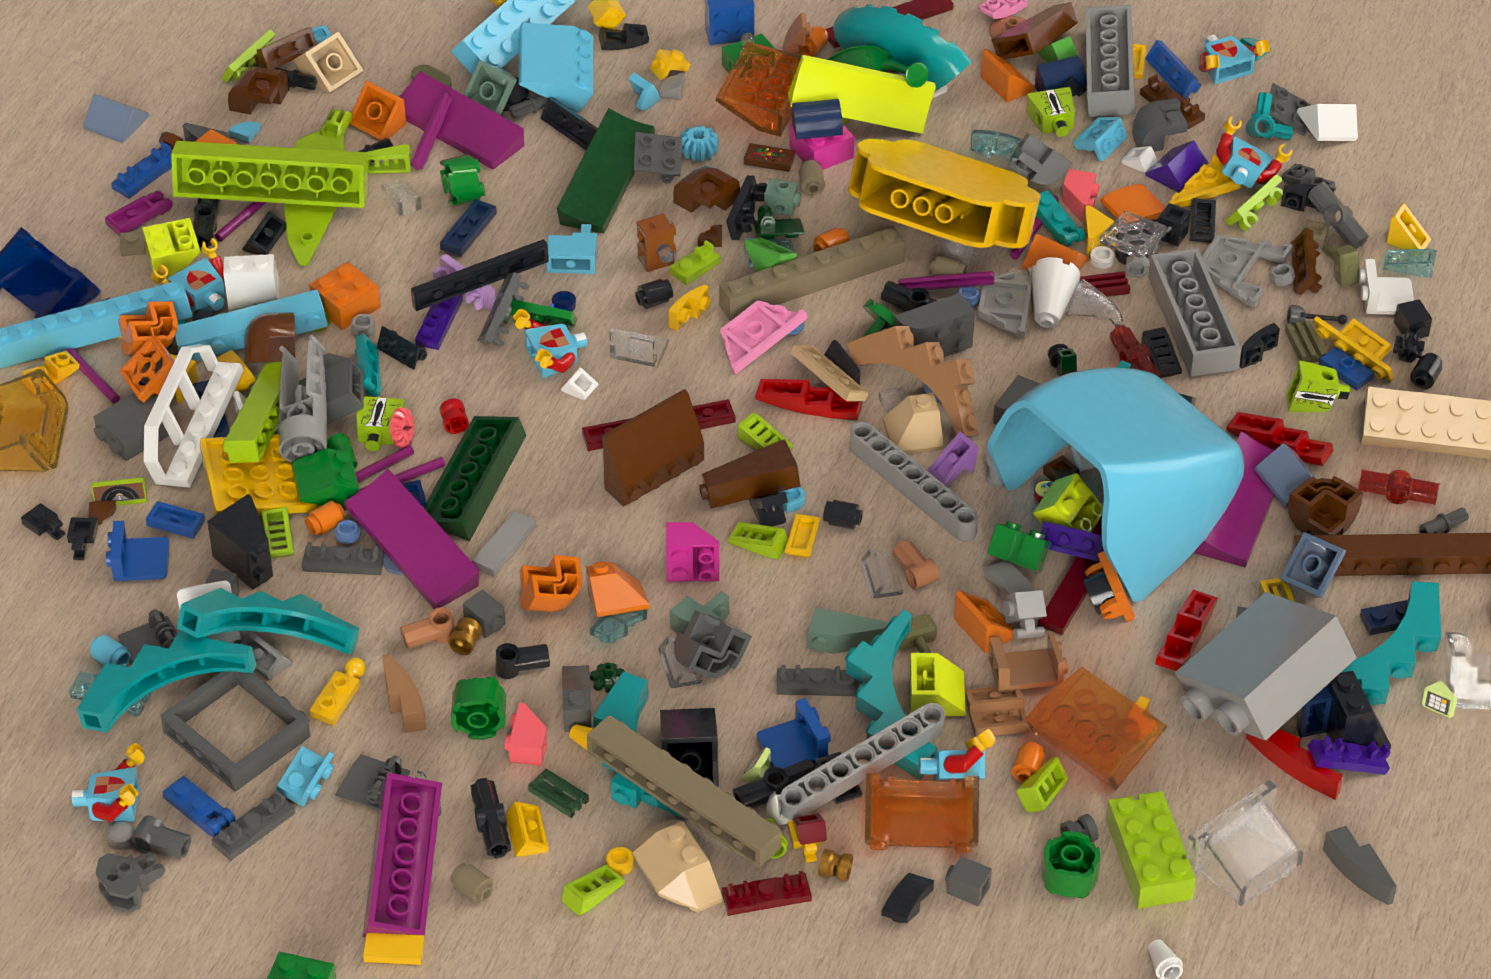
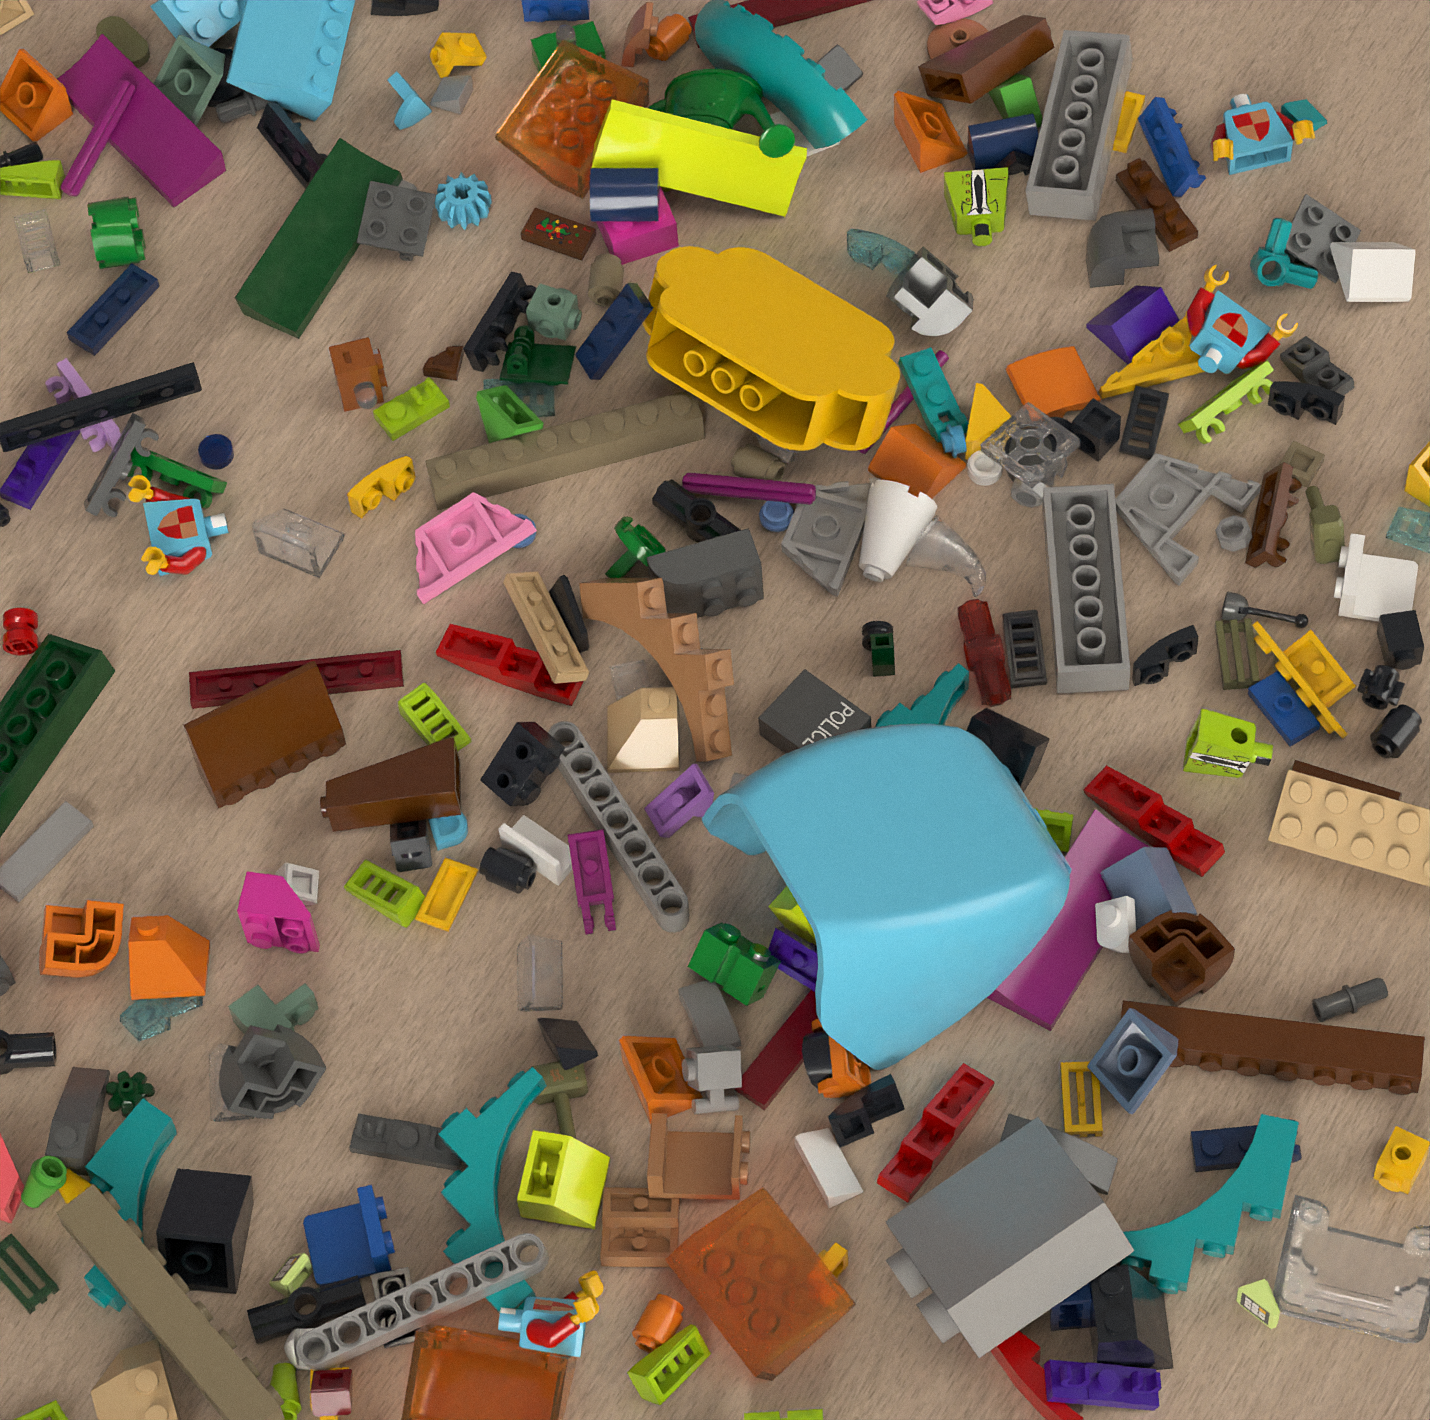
camera: 15 degrees right, 15 degrees up
(563, 730) = (44, 1179): none -> bright green cone
(573, 253) = (246, 373): medium azure hinge -> none
(580, 385) = (205, 597): white slope -> none
(620, 860) = (75, 1396): yellow tile -> none
(654, 293) = (339, 456): black brick -> none
(706, 187) = (452, 285): reddish brown brick -> none
(829, 199) = (613, 331): none -> dark blue plate
(830, 238) = (606, 396): orange brick -> none
(838, 449) = (523, 764): none -> black brick
(840, 631) = (456, 1068): sand green slope -> none
(873, 506) = (549, 853): none -> white panel
(904, 510) = (592, 876): none -> magenta hinge
(916, 607) = (567, 1041): none -> black slope
(917, 568) = (589, 976): nougat piece -> none
(1079, 191) = (979, 350): coral slope -> none
(1079, 240) = (953, 440): none -> dark azure plate
(1102, 136) = (1037, 256): medium azure bracket -> none
(1109, 283) = (974, 512): dark red tile -> none
(1116, 660) = (827, 1166): none -> white slope
(1135, 620) = (870, 1104): none -> black slope
(1140, 158) = (1084, 299): white slope -> none
(1275, 495) = (1115, 923): none -> white plate
(1328, 205) = (1346, 459): dark grey piece -> none
(1398, 487) = (1300, 928): clear red piece -> none

